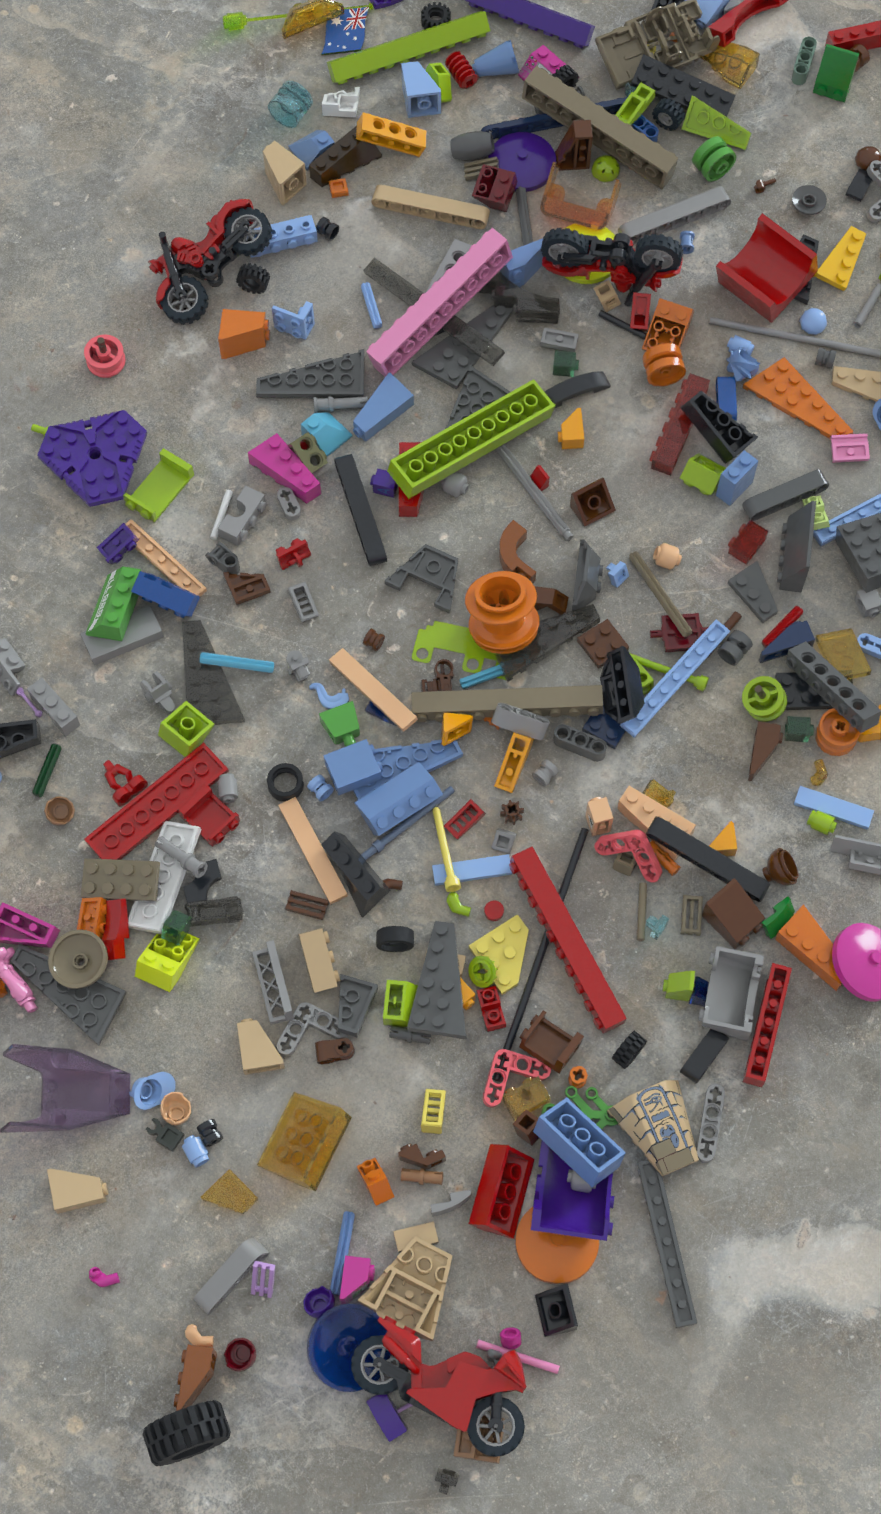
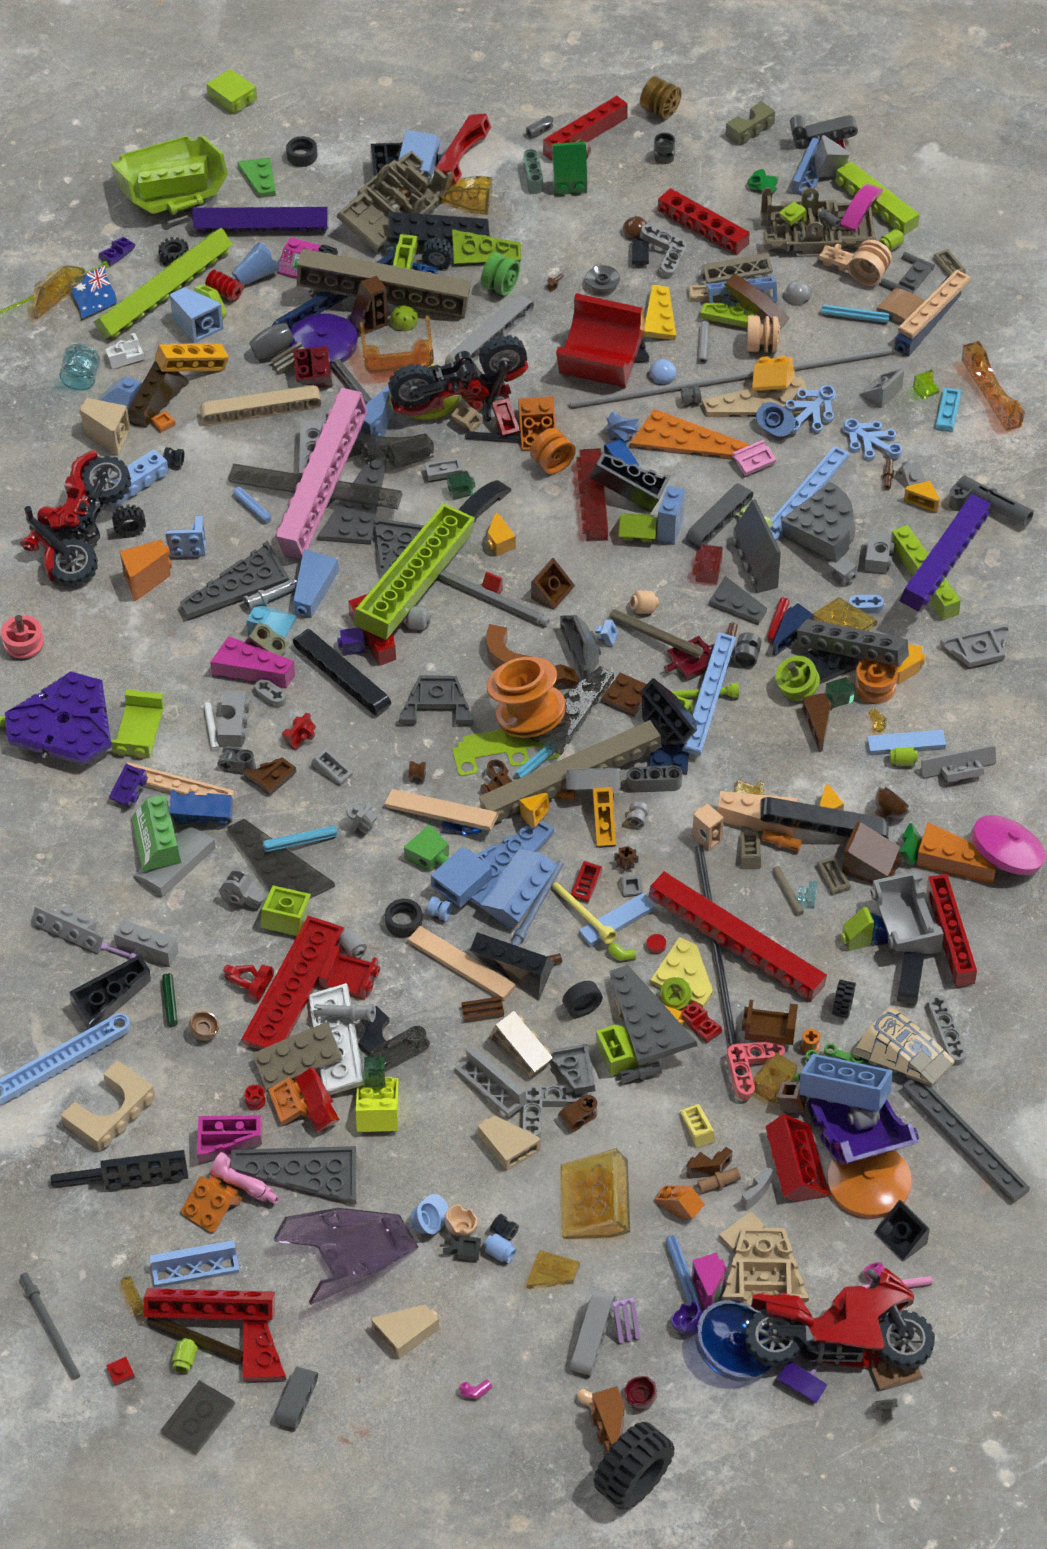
camera: 25 degrees left, 15 degrees down
(65, 896) = (253, 1092): none -> red wheel
(68, 953) = (298, 1123): dark tan dish -> none
(329, 701) = (401, 838): light blue piece -> none
(632, 845) = (752, 835): coral beam -> none
(737, 342) = (607, 410): light blue brick -> none
(834, 16) = (540, 126): none -> dark grey bar

